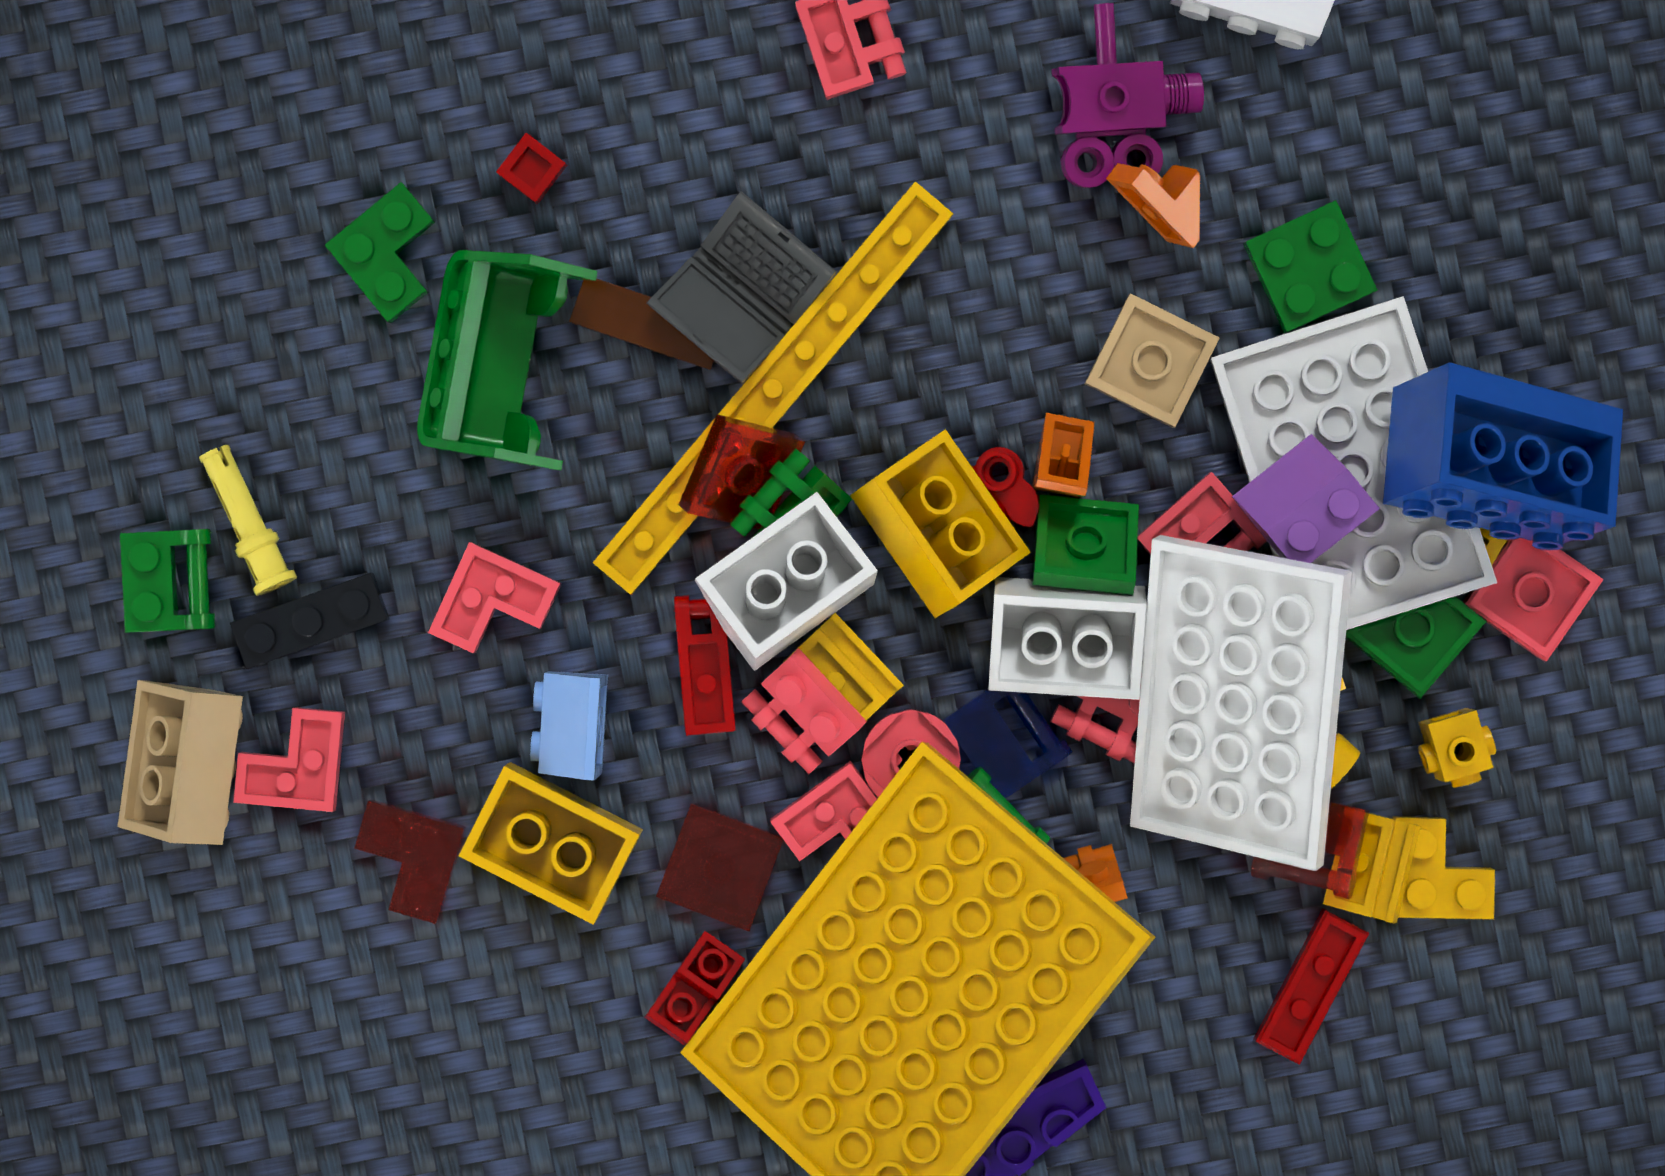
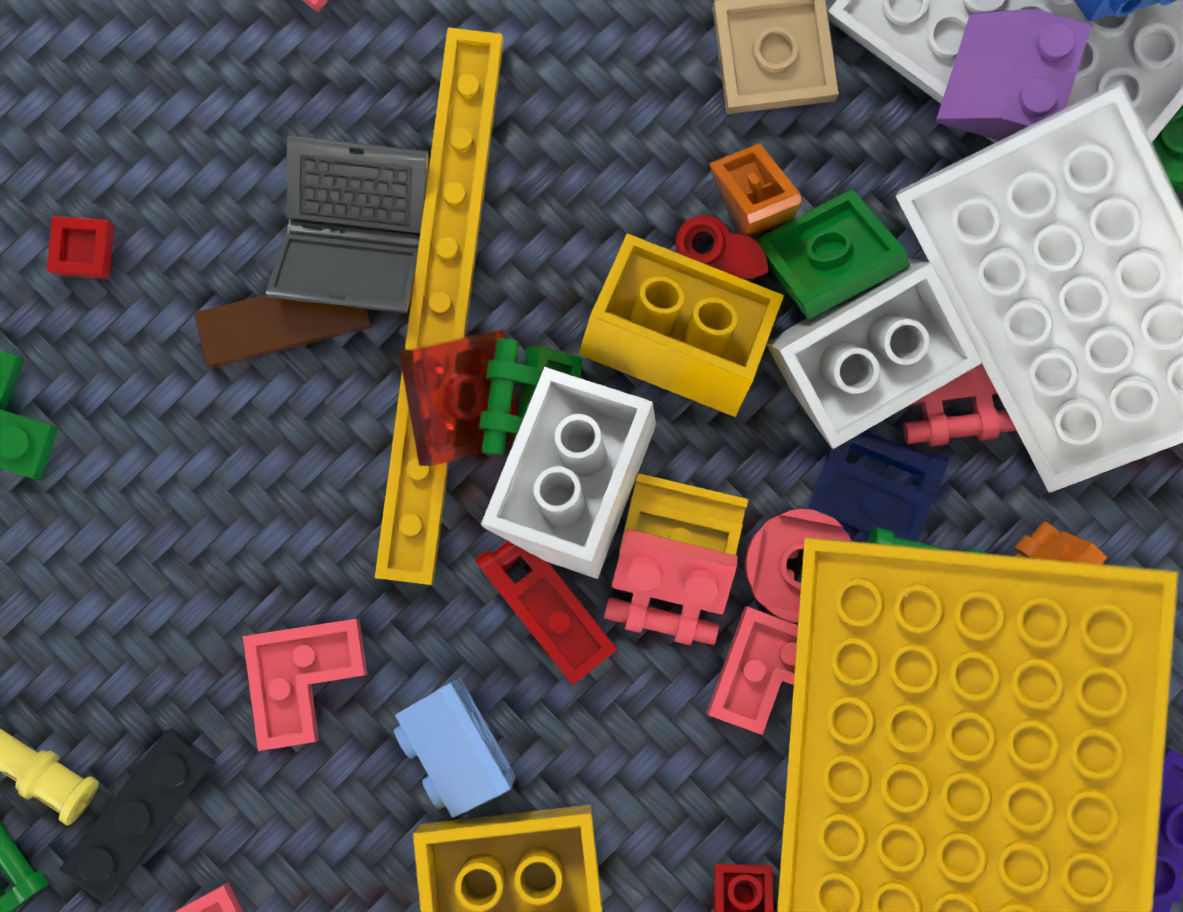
camera: 30 degrees left, 5 degrees down
(485, 353) = (142, 439): green windscreen -> none
(720, 866) = (689, 791): clear red plate -> none
(1202, 515) = (915, 152): coral plate -> none

